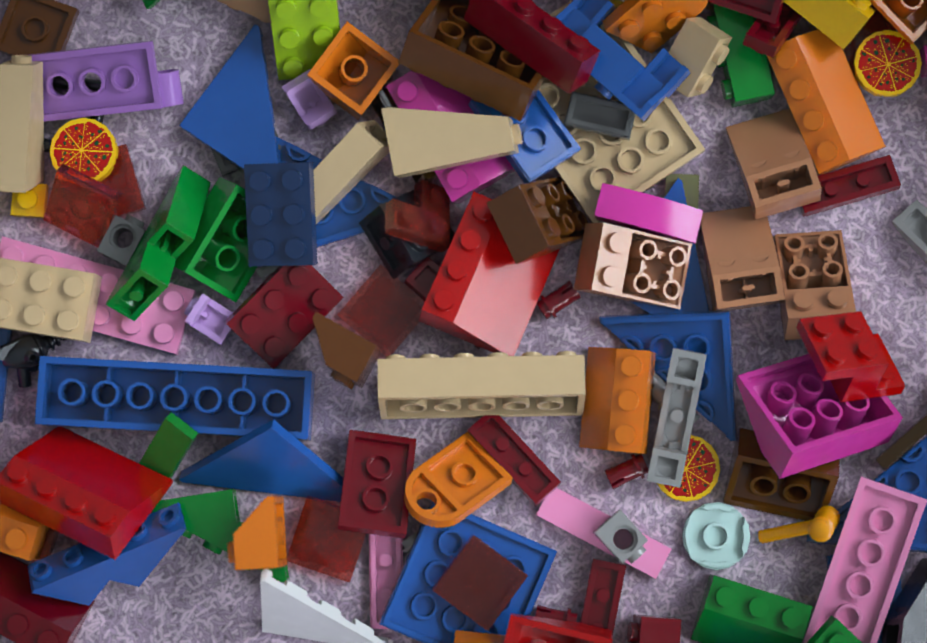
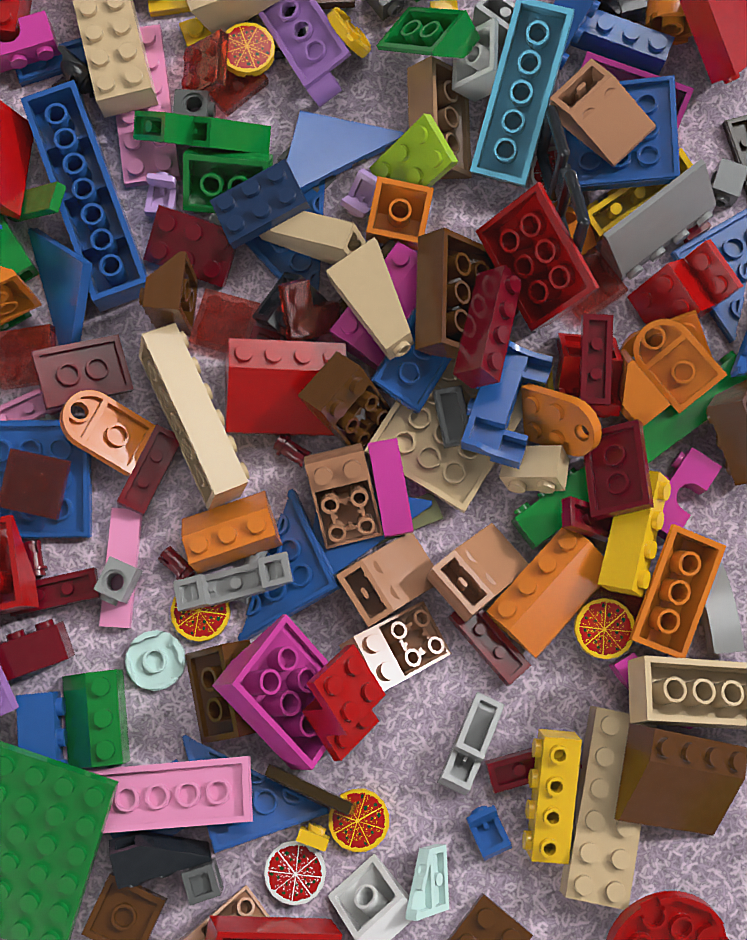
camera: 60 degrees right, 5 degrees down
(117, 31) = (351, 35): none -> yellow tile
(819, 528) = (189, 740): light orange piece -> none

